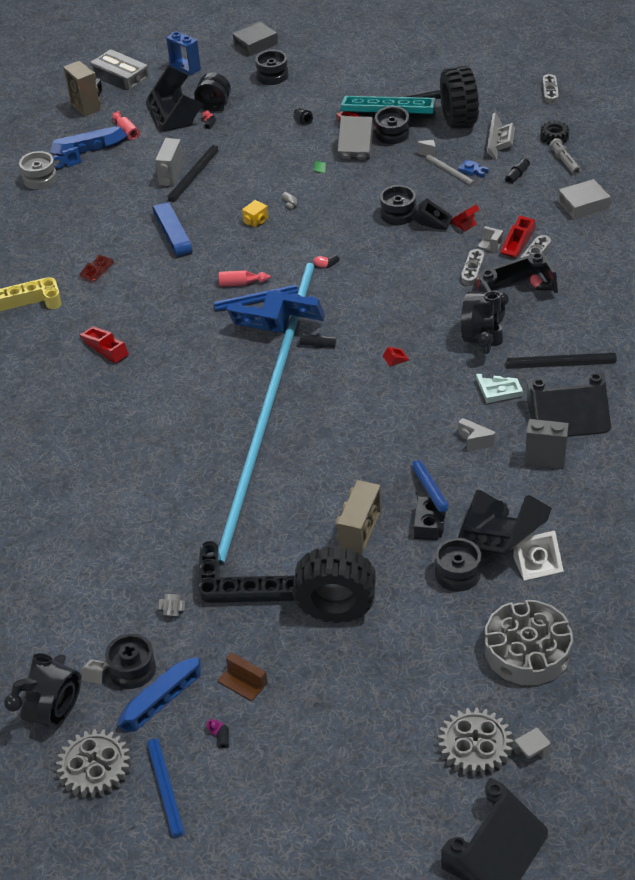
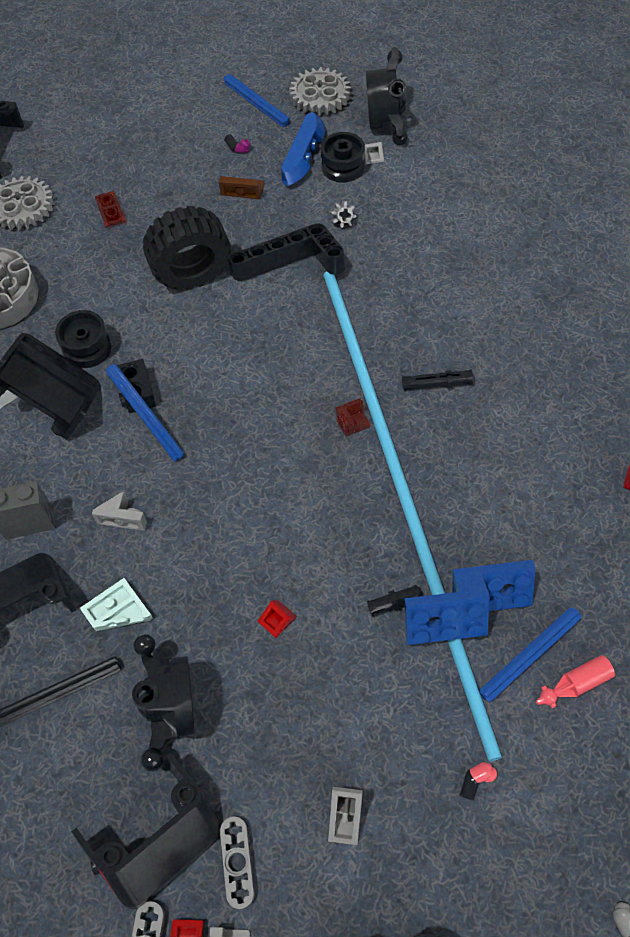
camera: 155 degrees right, 15 degrees up
(188, 448) = (446, 379): none -> black pin
(275, 448) = (351, 417): none -> clear red panel
(359, 516) = (205, 347): dark tan brick -> none
(385, 704) = (109, 209): none -> clear red slope
(402, 266) = (345, 815): none -> light grey slope

